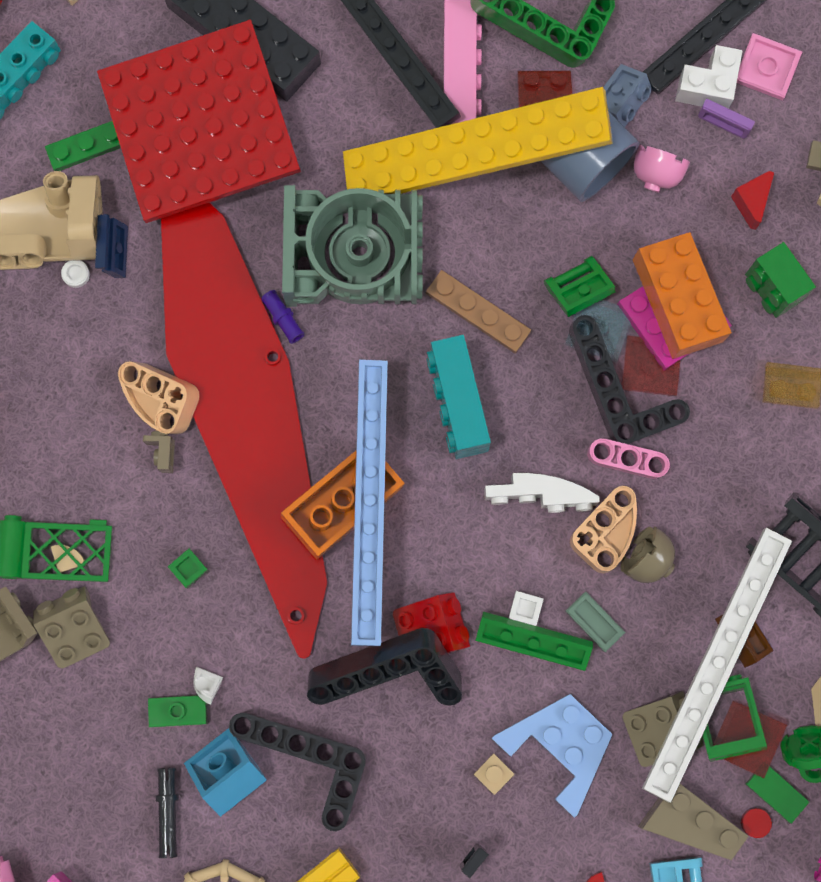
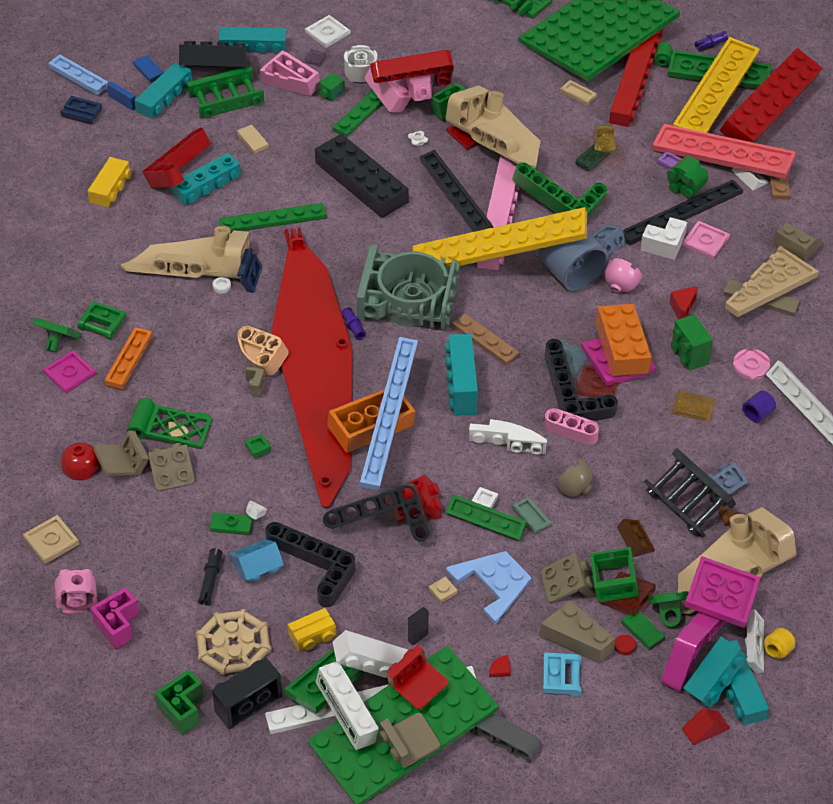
camera: 10 degrees right, 30 degrees down
(198, 121) = (322, 211): red plate -> none
(583, 291) = (562, 331): green plate -> none
(612, 539) = (548, 463): light nougat beam -> none
(716, 665) = (608, 536): white plate -> none
(726, 119) = (672, 260): medium lavender tile -> none

